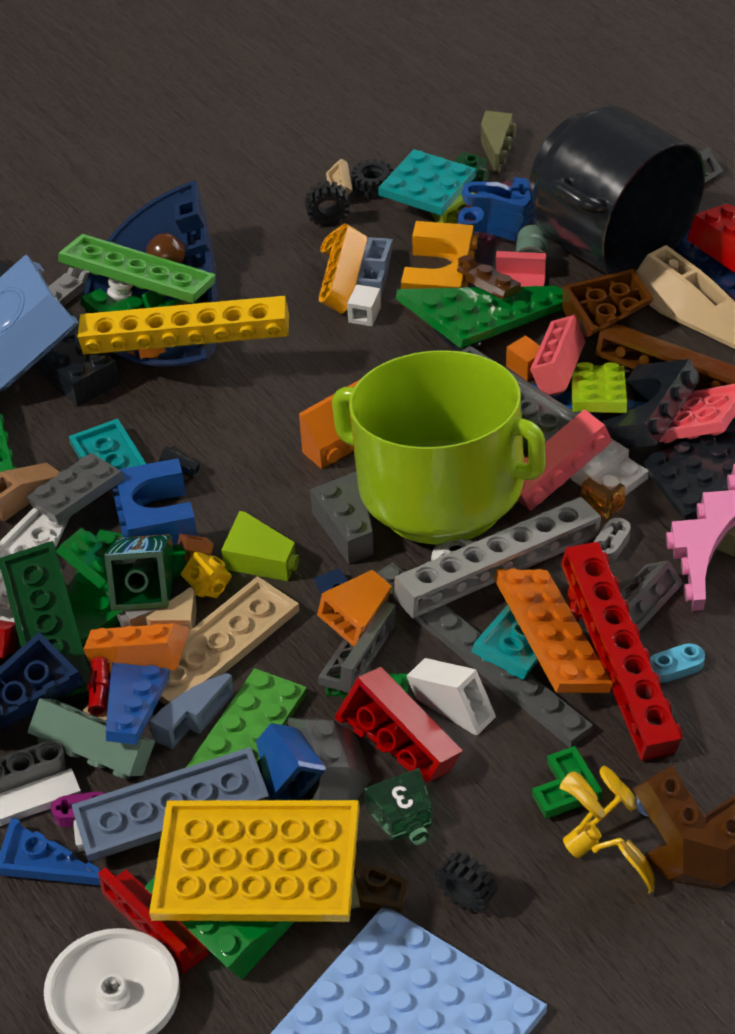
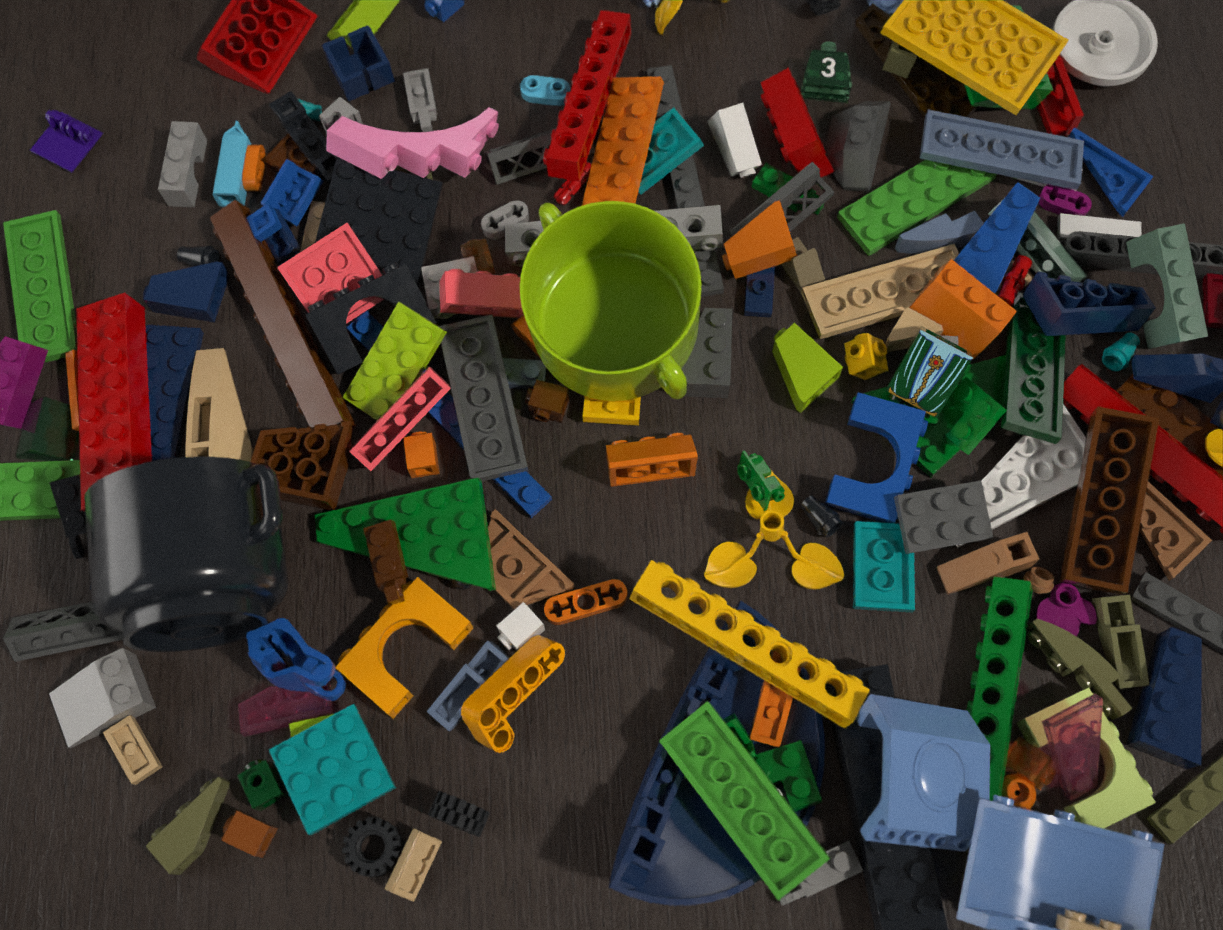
camera: 150 degrees left, 25 degrees up
(166, 247) = (692, 823): reddish brown hair -> none
(194, 543) = (863, 381): dark orange tile -> none
(227, 459) = (732, 567): none -> yellow plant
(253, 459) = (753, 471): none -> green hinge
(287, 762) = (896, 135): blue slope -> none
(313, 631) = (805, 267): none -> dark tan slope
(316, 353) = (562, 600): none -> orange beam
(393, 335) = (520, 568): none -> medium nougat wing
(454, 145) = (248, 834): none -> dark orange brick
(523, 267) = (336, 584): coral panel -> none
(532, 240) = (301, 604): sand green wheel -> none
(554, 800) = (694, 31): green plate -> none

